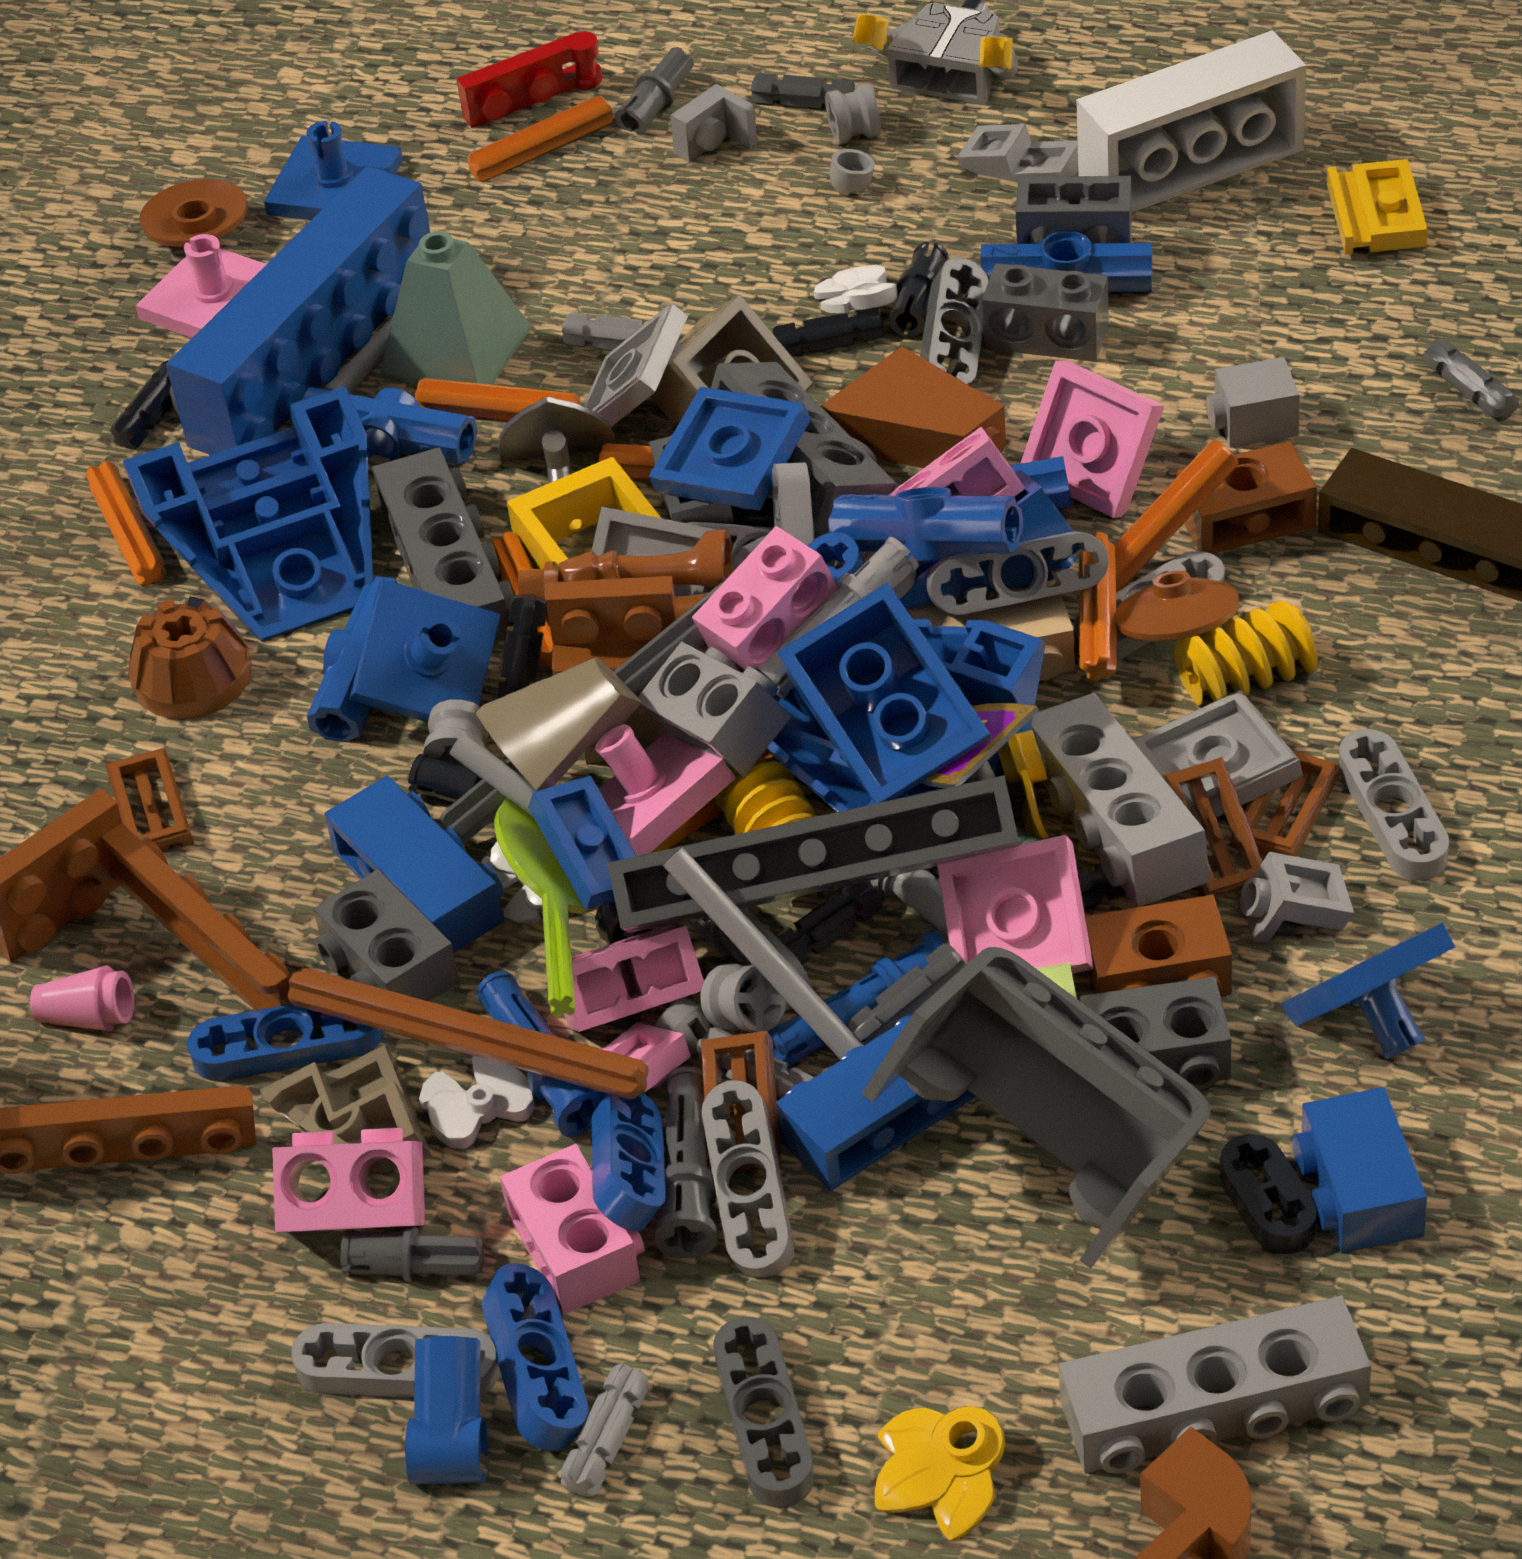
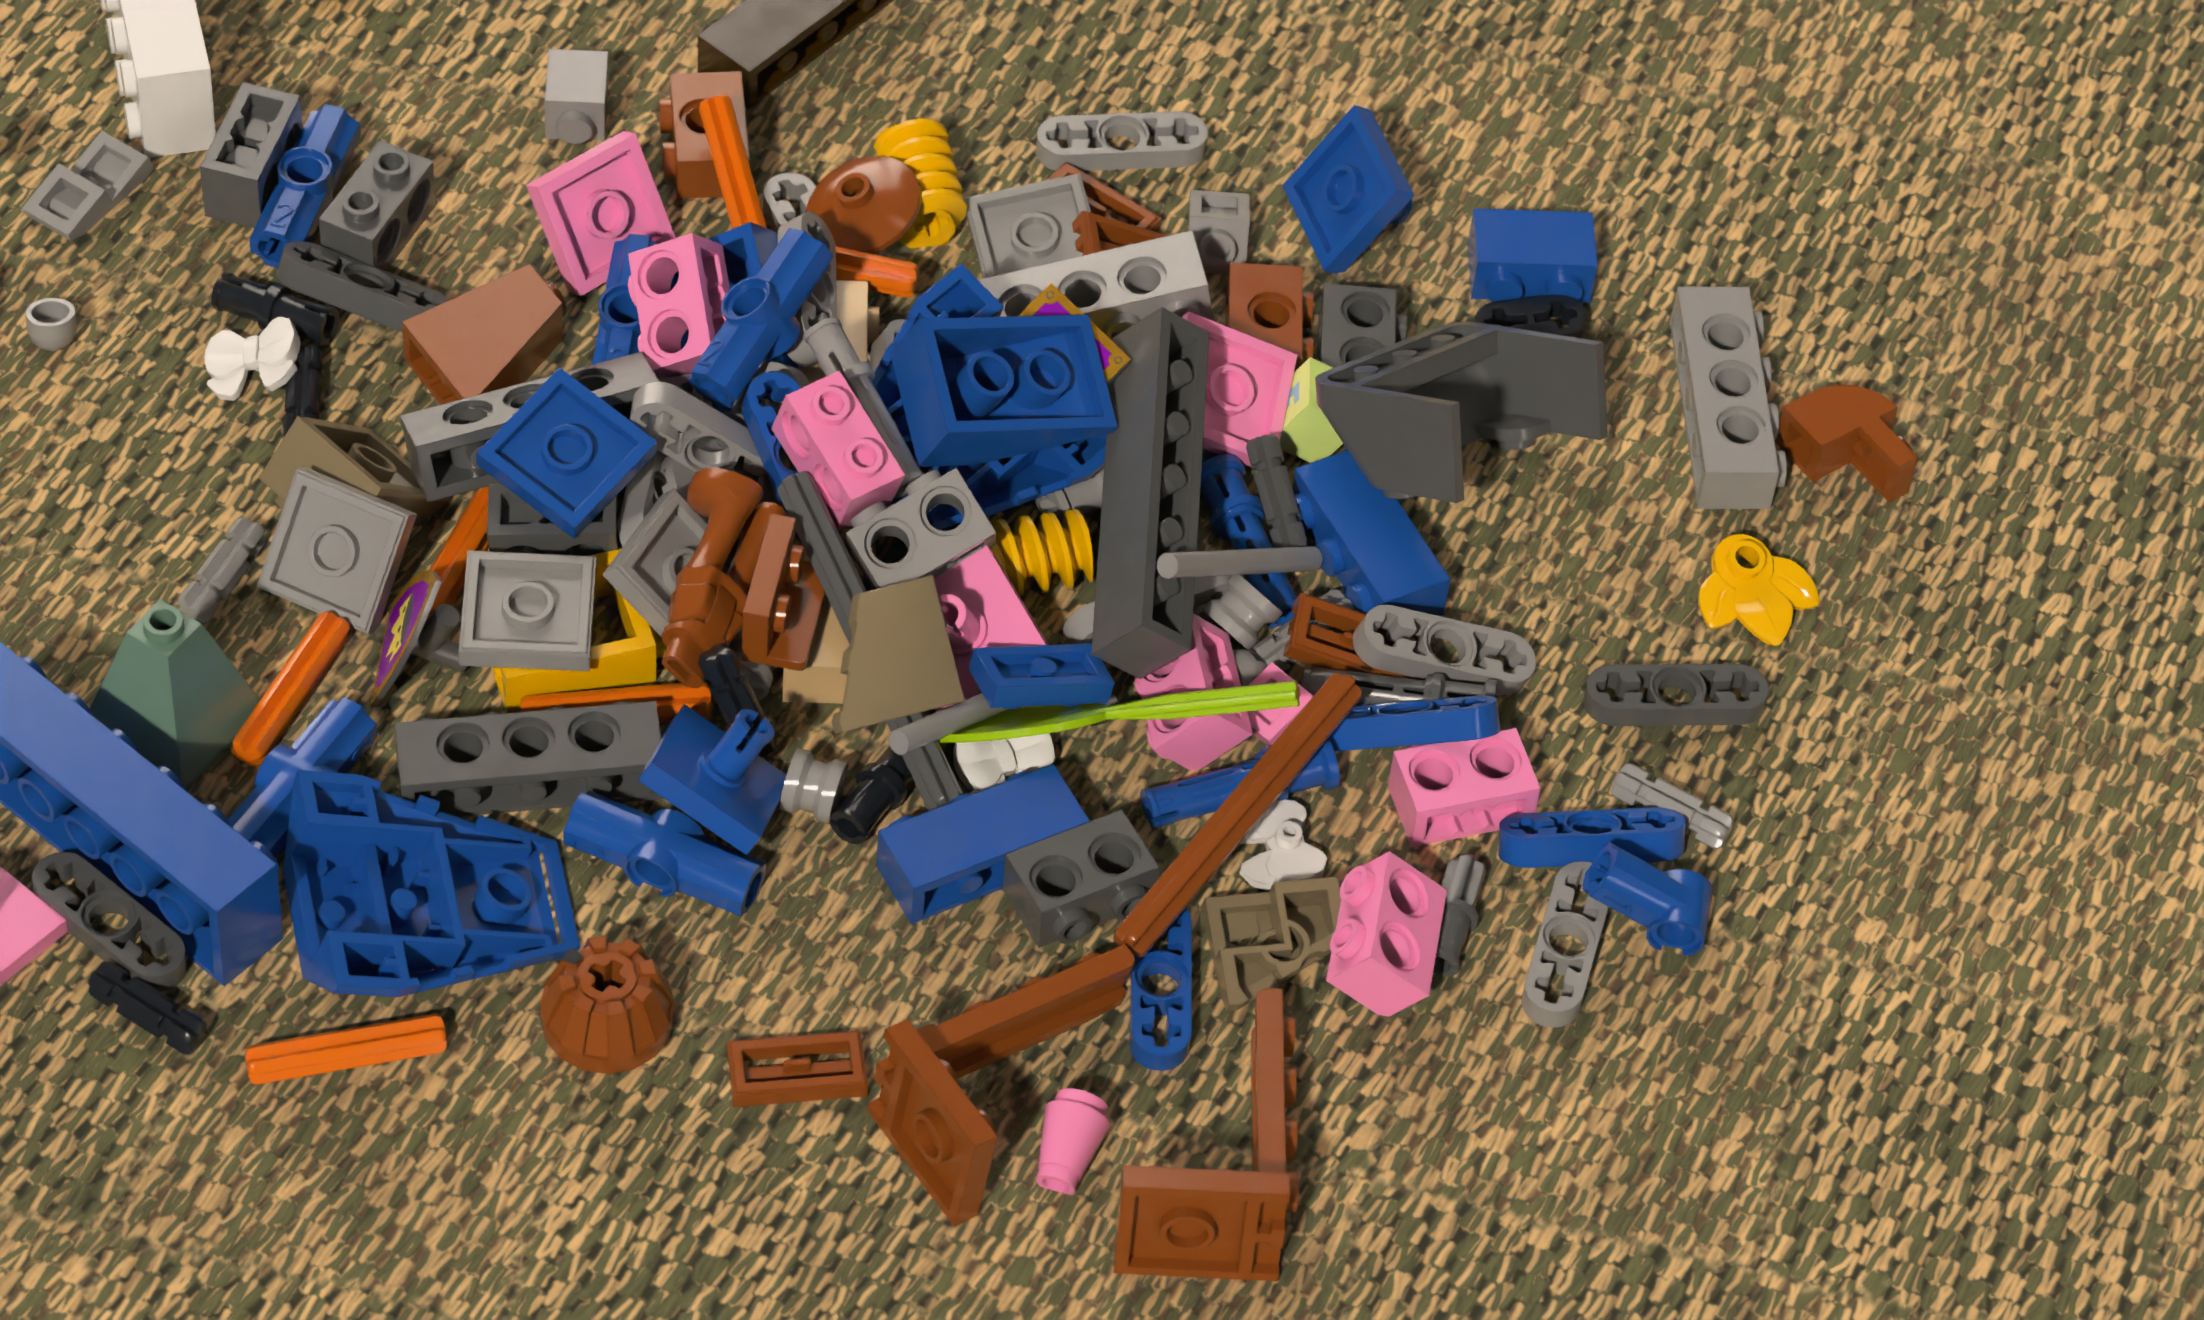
camera: 90 degrees left, 5 degrees up
(567, 485) = (527, 611): none -> light grey tile

